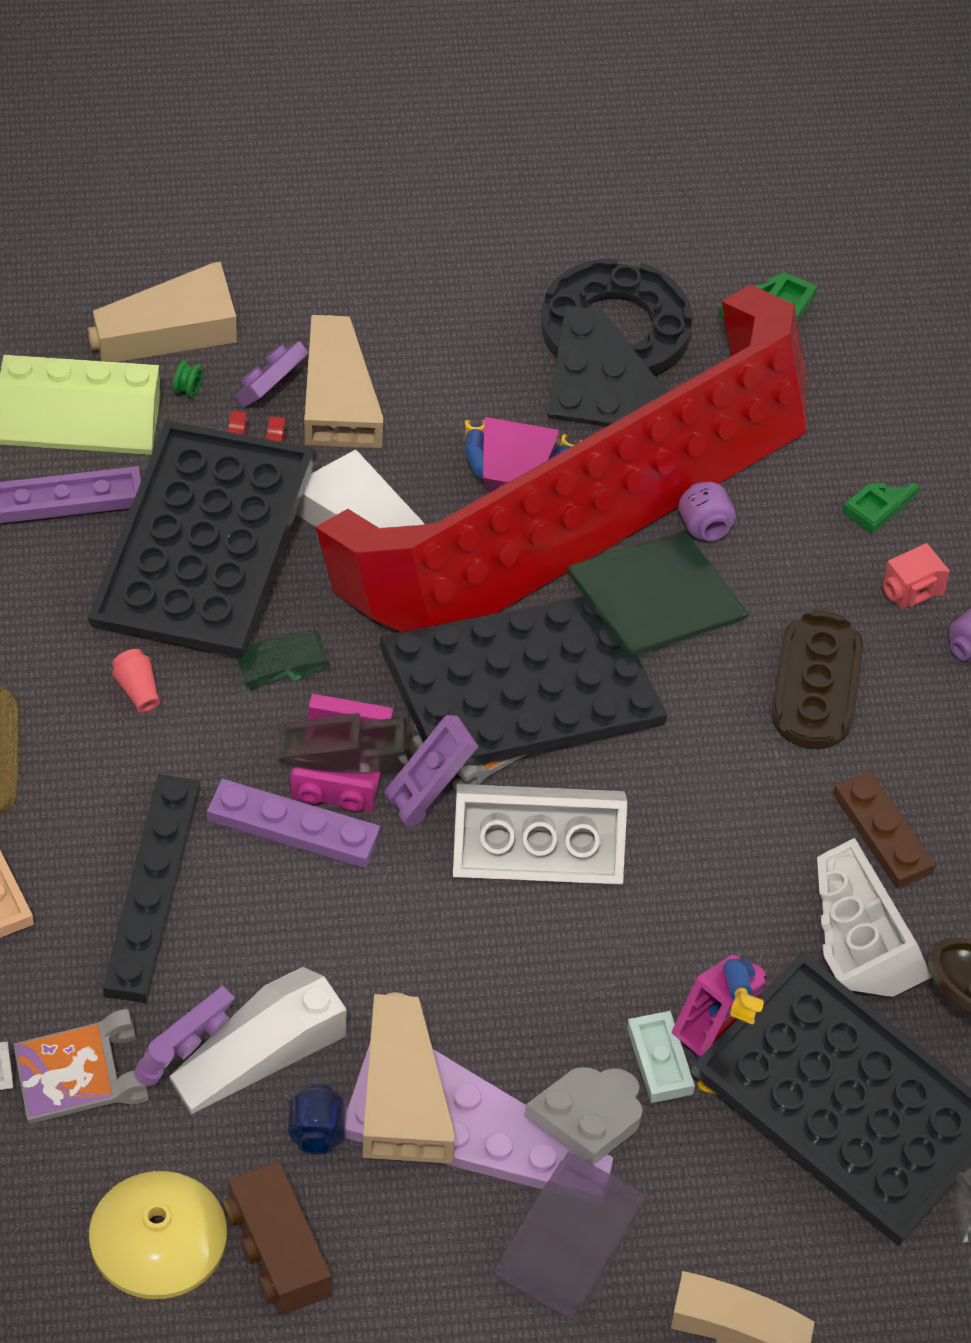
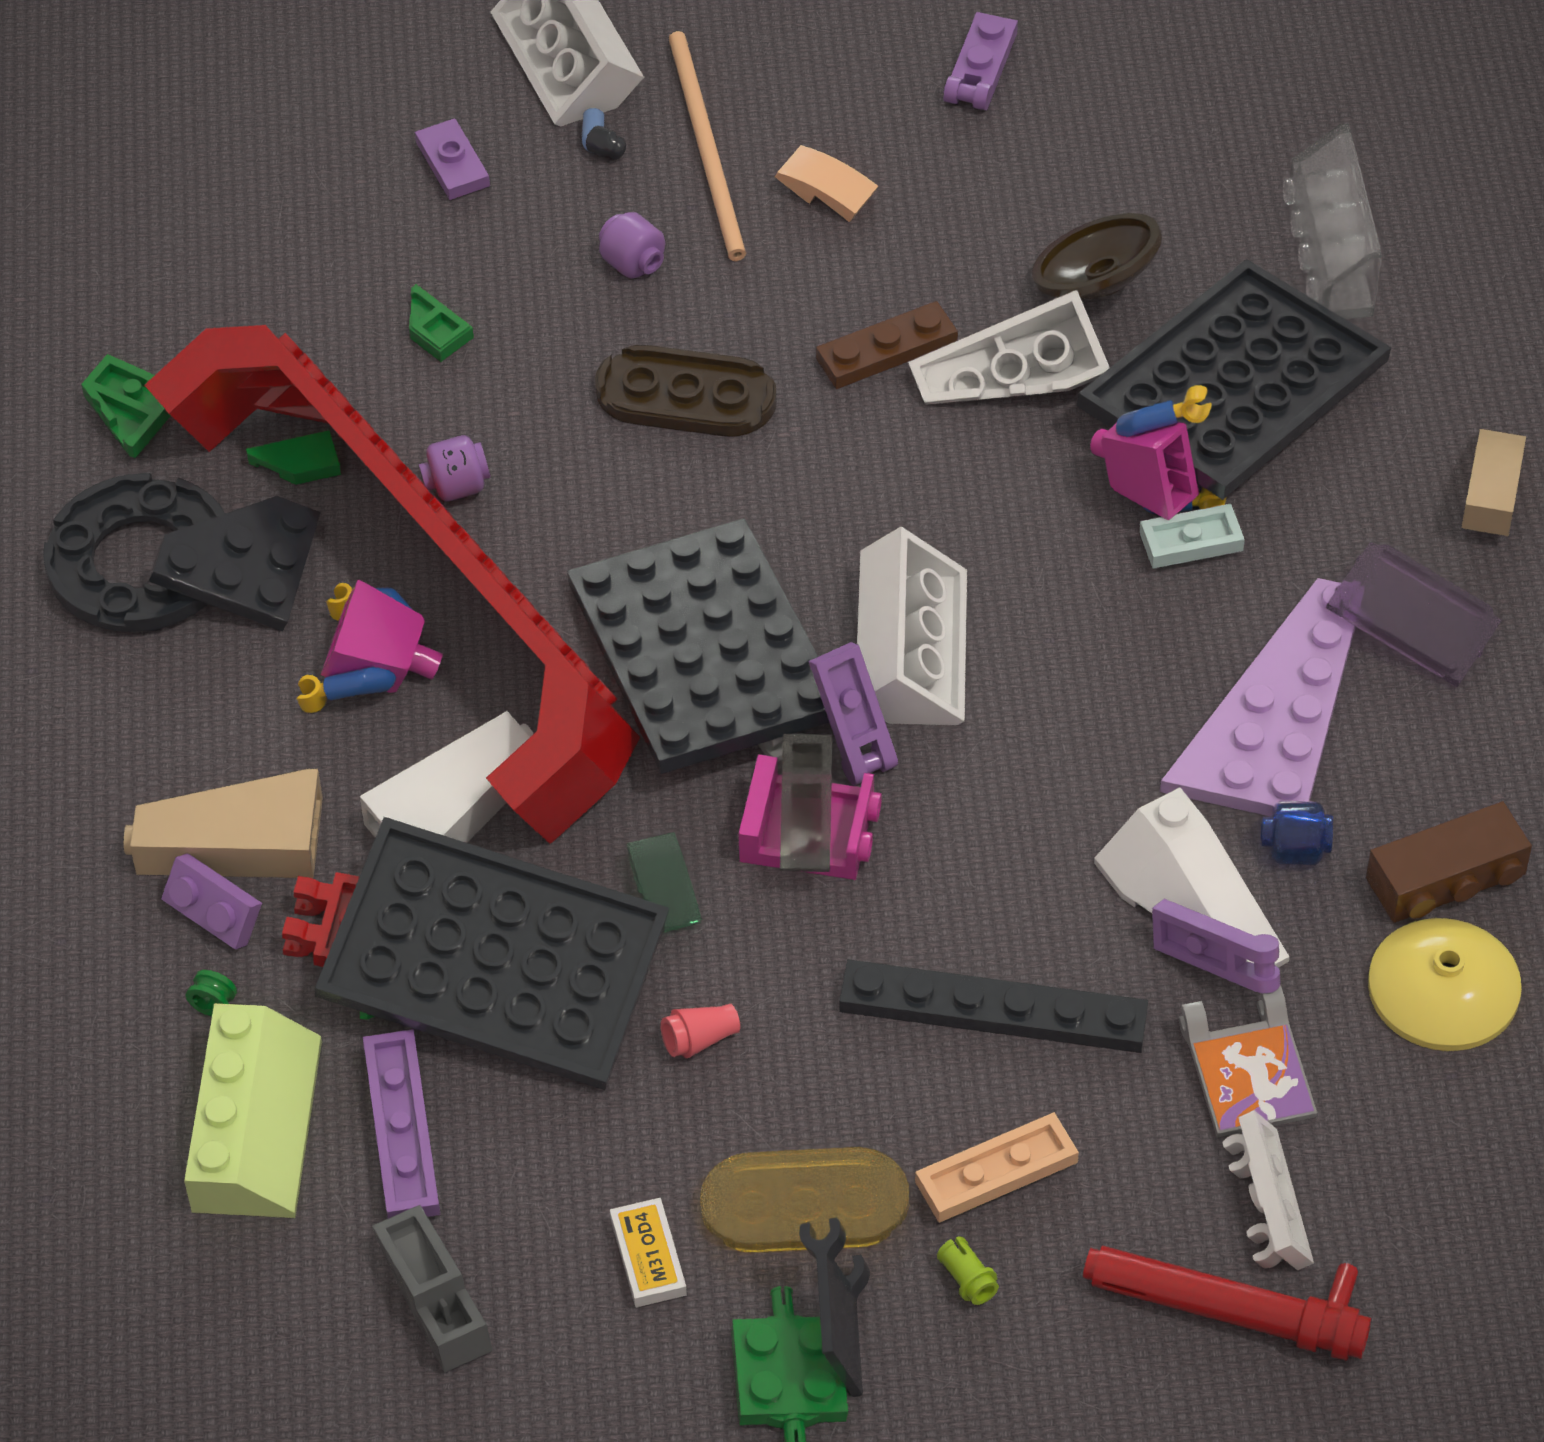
camera: 85 degrees left, 0 degrees up
(167, 318) = (100, 1009): tan slope -> none
(293, 823) = (898, 871): medium lavender plate -> none
(404, 1092) = (1265, 738): tan slope -> none
(589, 1111) = (1268, 593): light grey plate -> none
(657, 593) = (570, 521): clear green piece -> none
(915, 577) = (555, 292): coral window -> none

